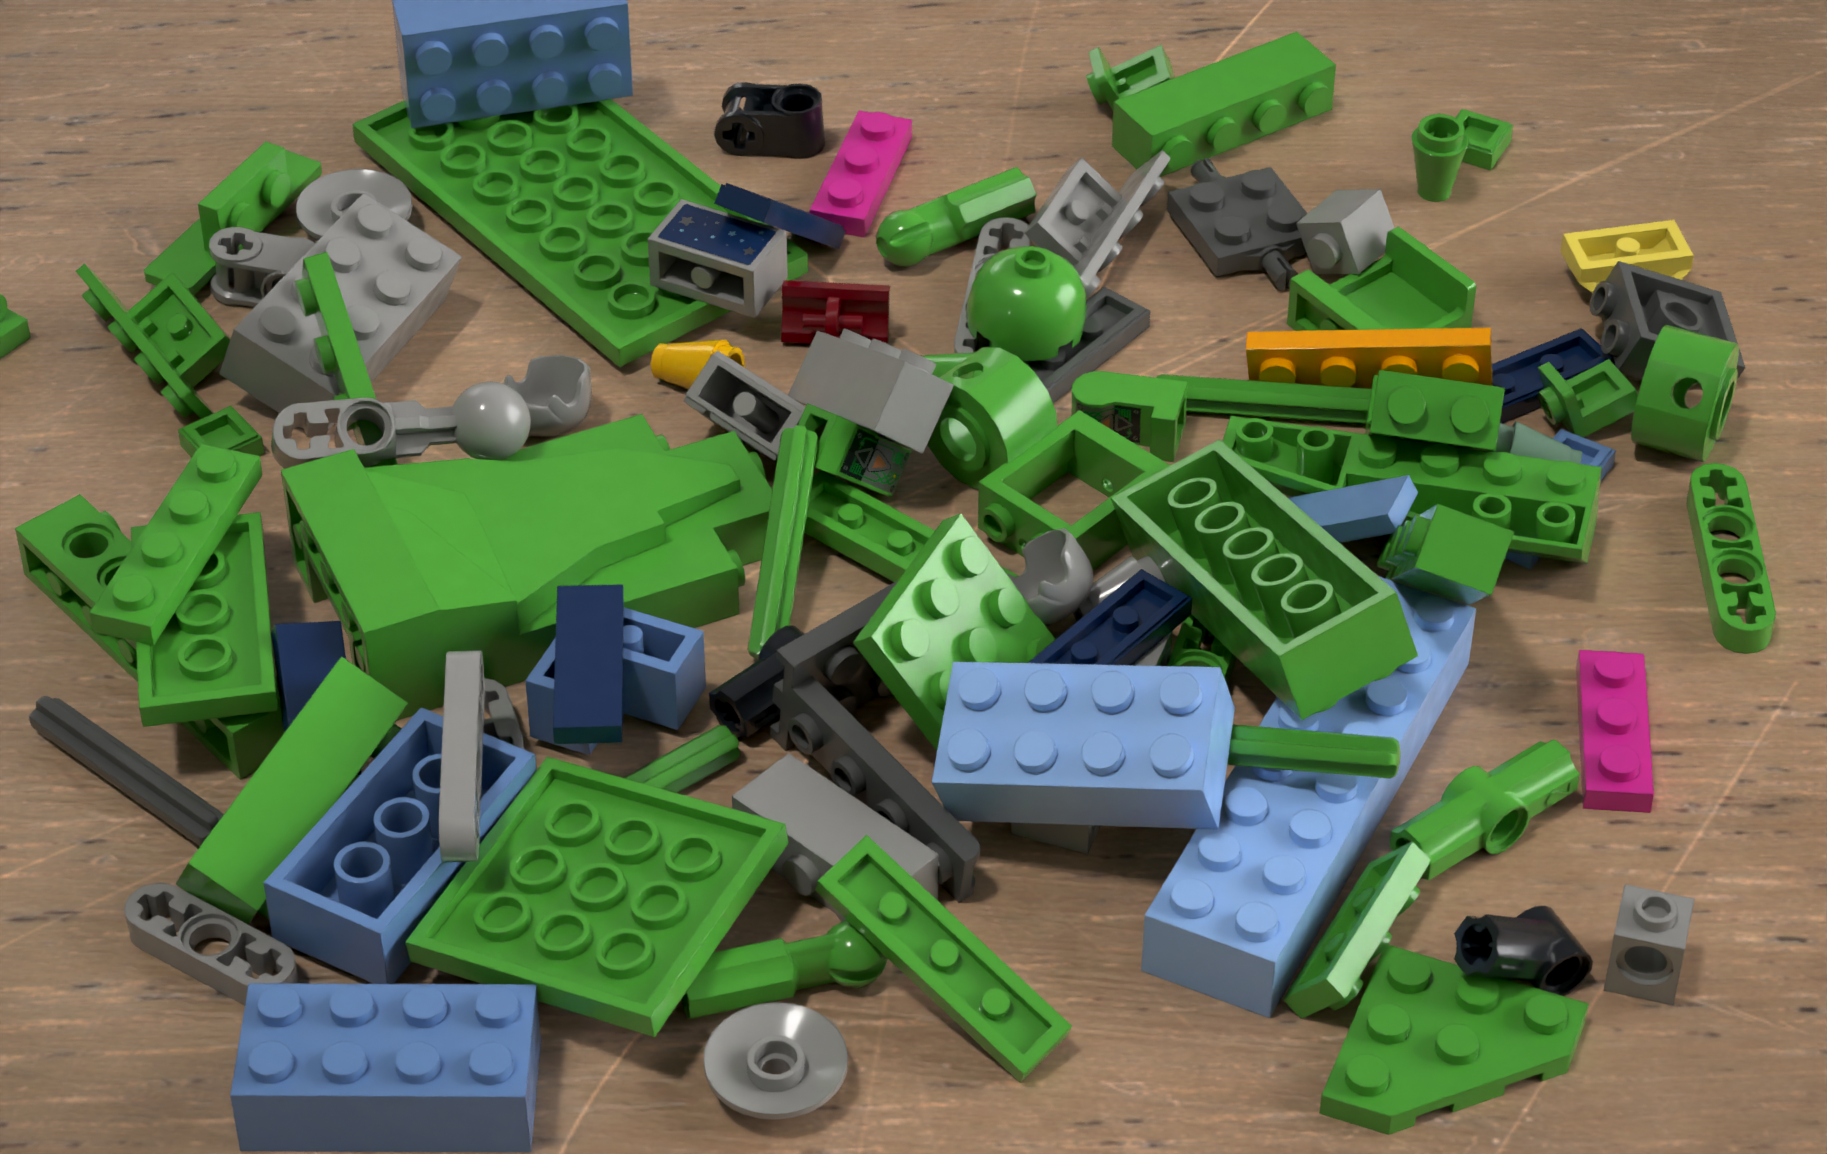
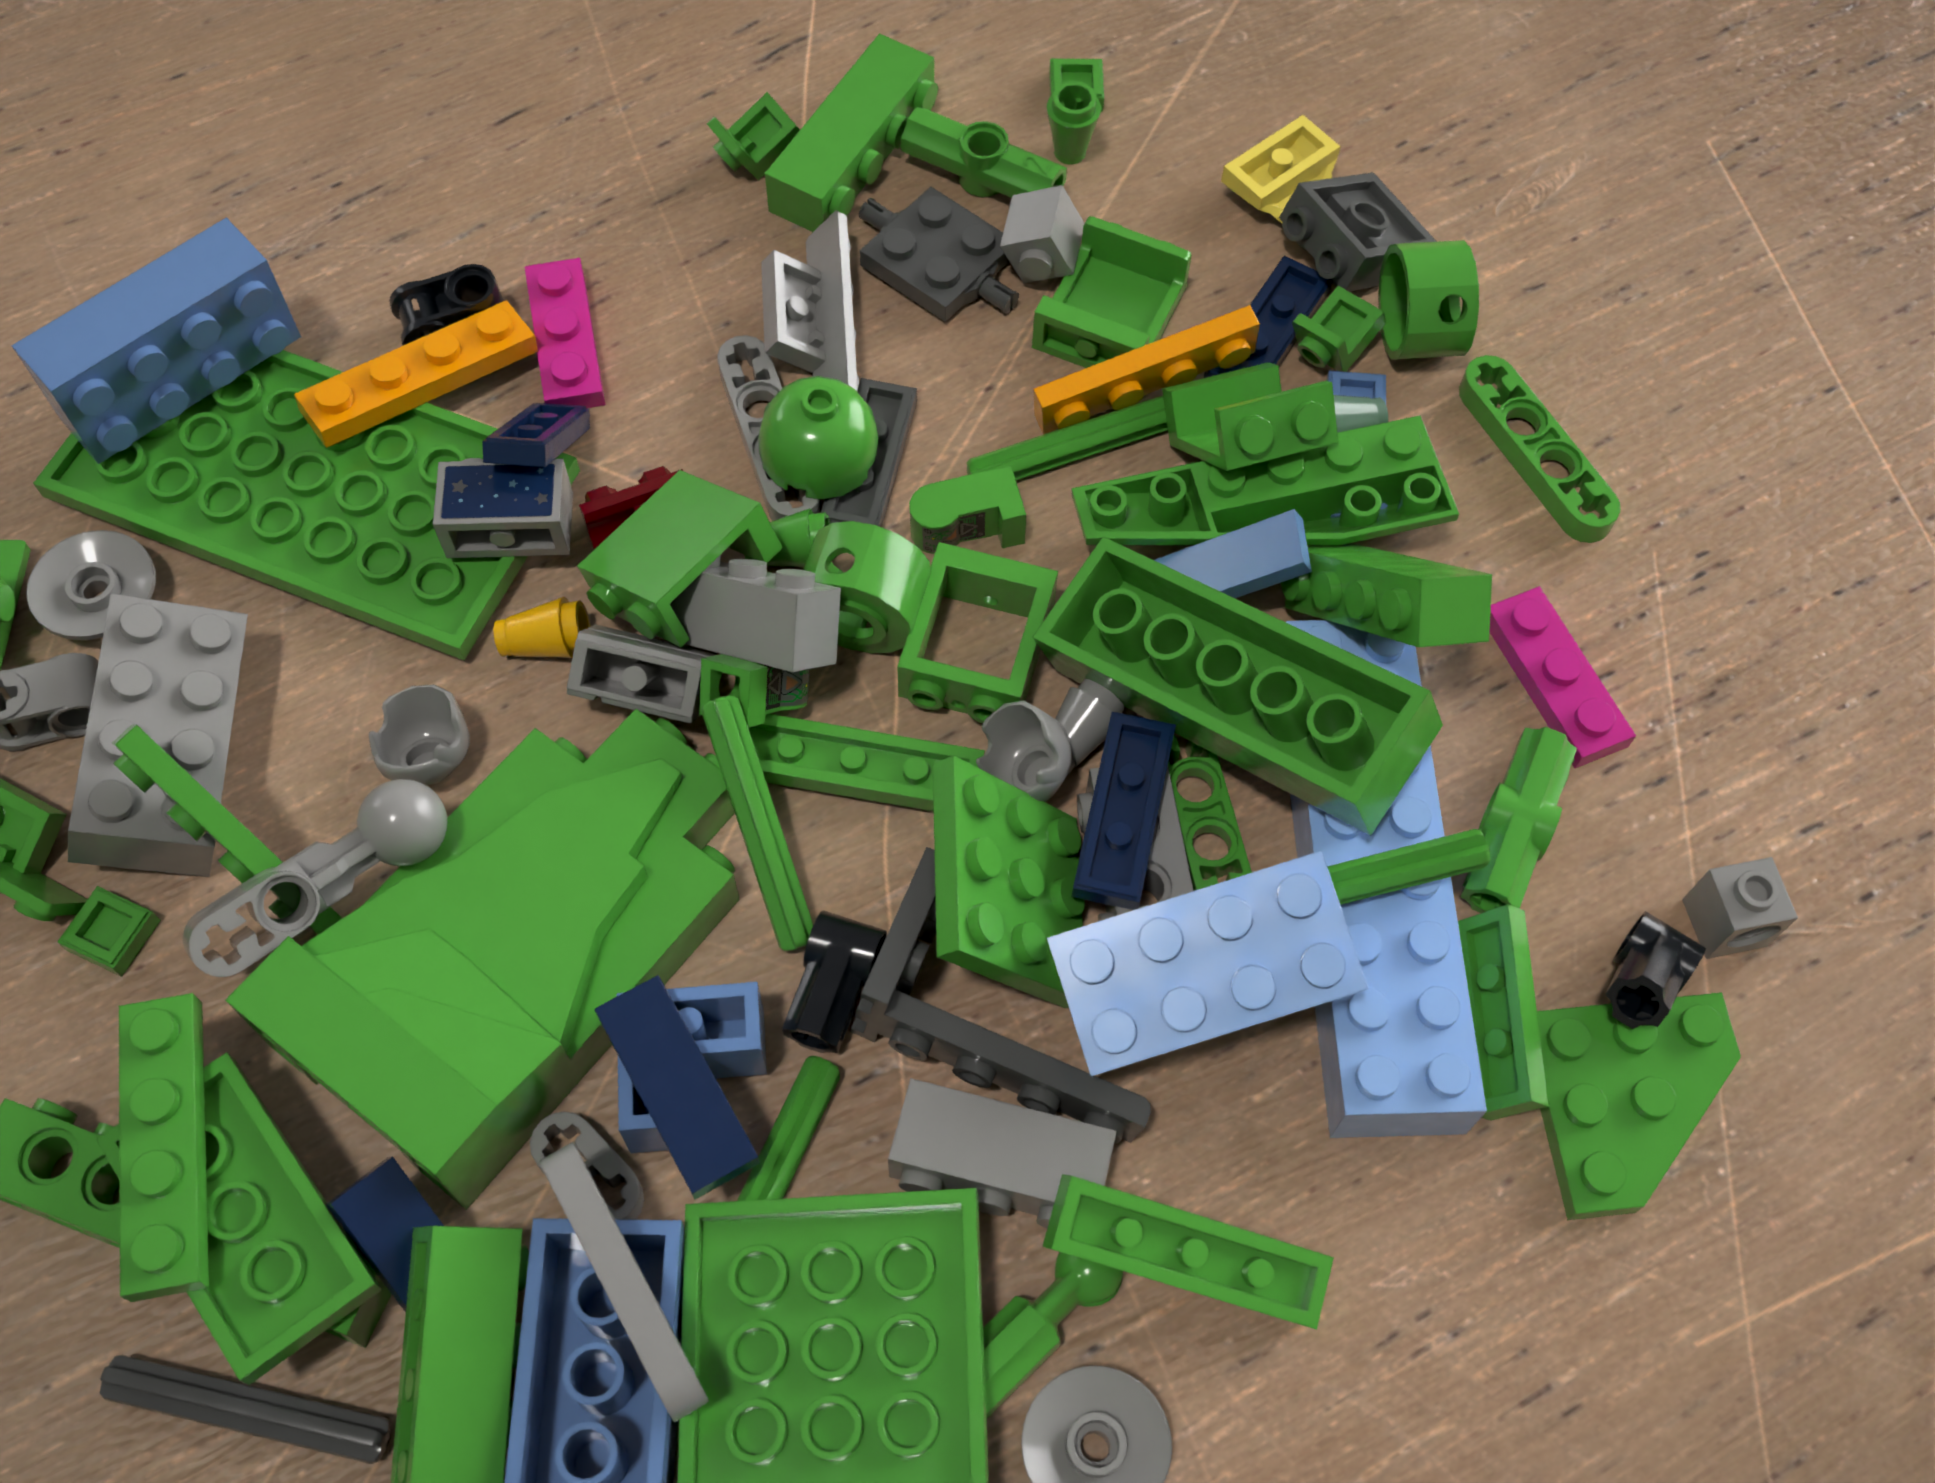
camera: 30 degrees left, 20 degrees up
(712, 148) = (415, 373): none -> light orange plate
(870, 308) = (668, 547): none -> bright green panel
(915, 233) = (685, 355): bright green piece -> none
(1330, 154) = (978, 155): none -> bright green piece

